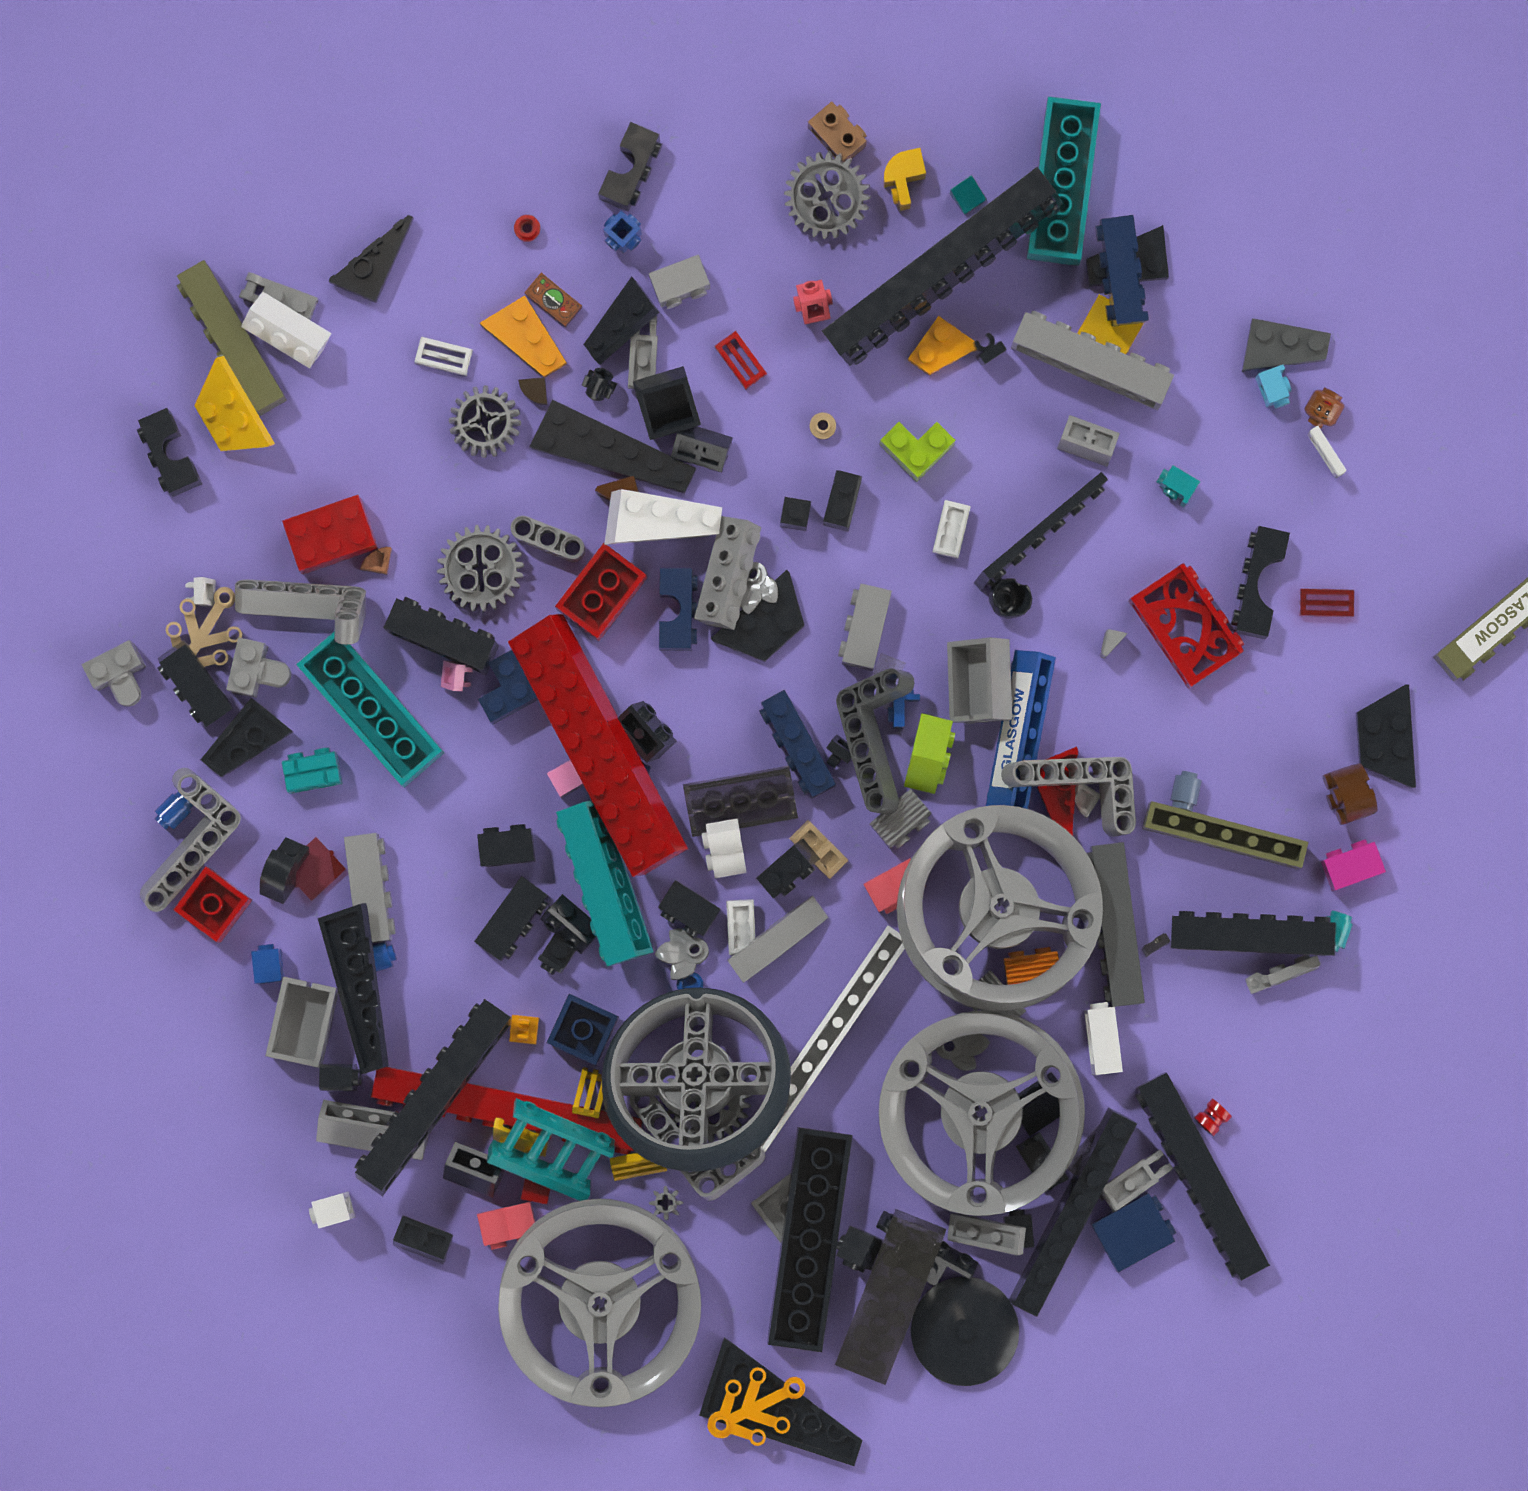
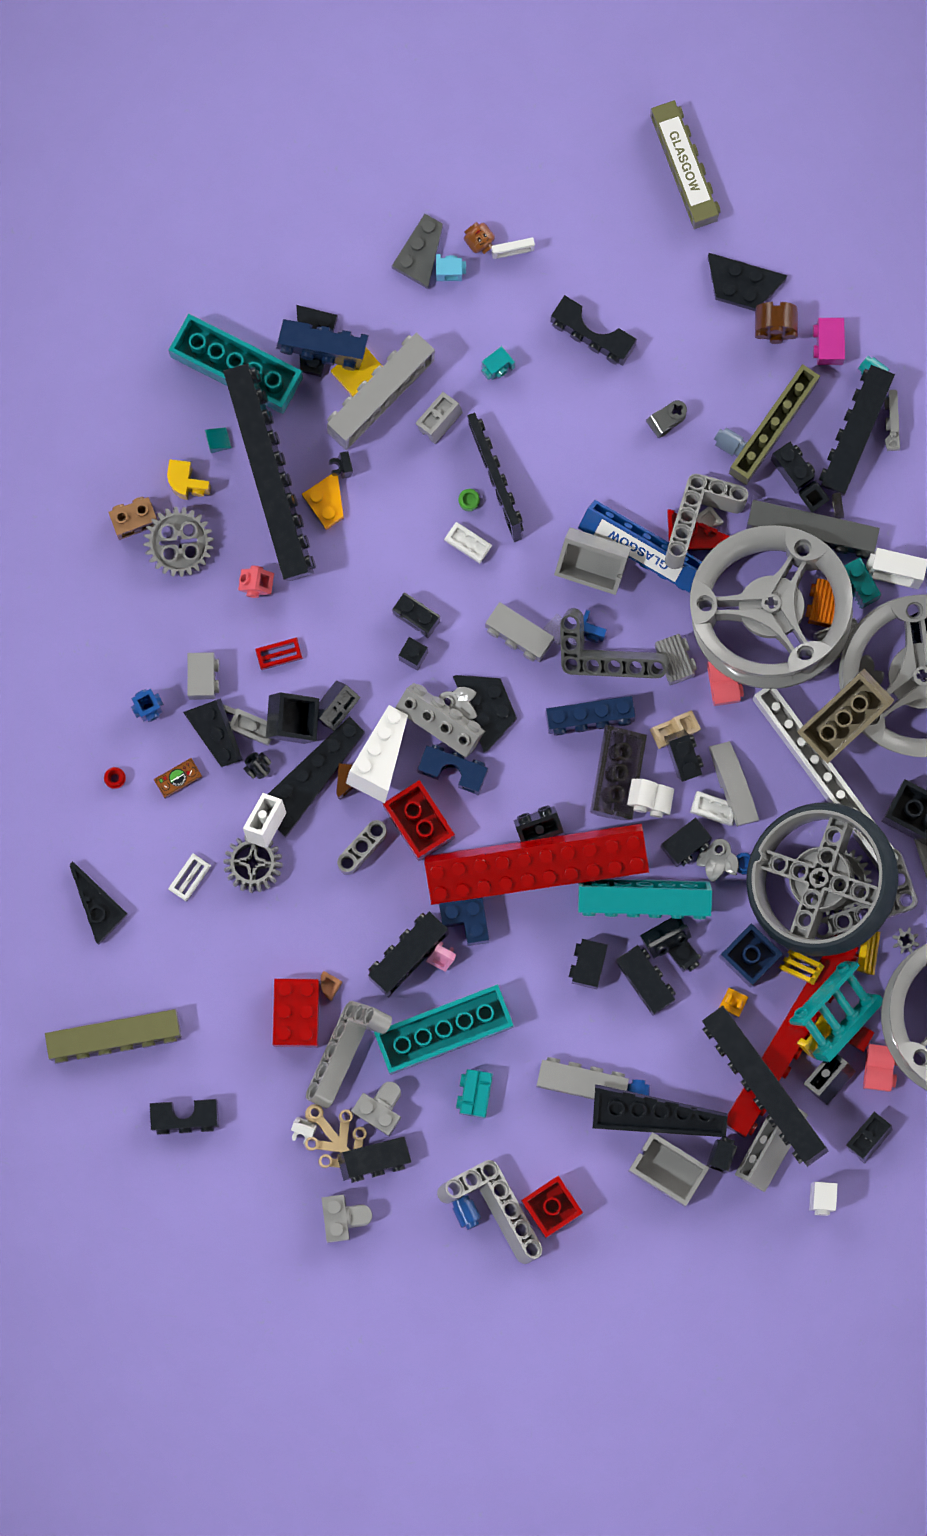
camera: 70 degrees left, 5 degrees down
(229, 411) = (171, 1056): yellow wing -> none
(244, 738) = (430, 1137): black wing -> none
(267, 964) = (613, 1181): blue brick -> none
(280, 870) = (544, 1143): black brick -> none
(286, 330) = (124, 989): white brick -> none
(292, 298) = (95, 987): light grey plate -> none
(318, 869) = (550, 1120): clear red piece -> none
(456, 570) = (371, 888): light grey gear -> none
(525, 335) = (198, 808): light orange wing -> none
(533, 415) = (264, 820): none -> white brick
(534, 389) = (240, 817): dark brown tile -> none
(565, 779) = (552, 899): bright pink panel -> none
(622, 189) = (85, 668): black arch -> none
(822, 434) = (352, 616): tan plate -> none
(839, 750) = (607, 685): black tile -> none
(895, 1039) = (845, 716): none -> dark tan brick
(917, 455) = (402, 547): lime brick -> none
(930, 754) = (634, 618): lime brick -> none
(1004, 512) = (469, 500): none -> bright green tile
(1010, 598) = (537, 517): black hair -> none
(1071, 1003) = (862, 584): none -> teal brick
(1110, 641) = (597, 456): light grey slope -> none
(1155, 912) = (813, 496): none -> black brick
(1181, 705) = (664, 420): none -> dark grey piece
(1182, 875) = (793, 467): none -> black brick
(1185, 662) = (586, 419): red fence -> none
(1326, 613) = (619, 306): clear red tile -> none

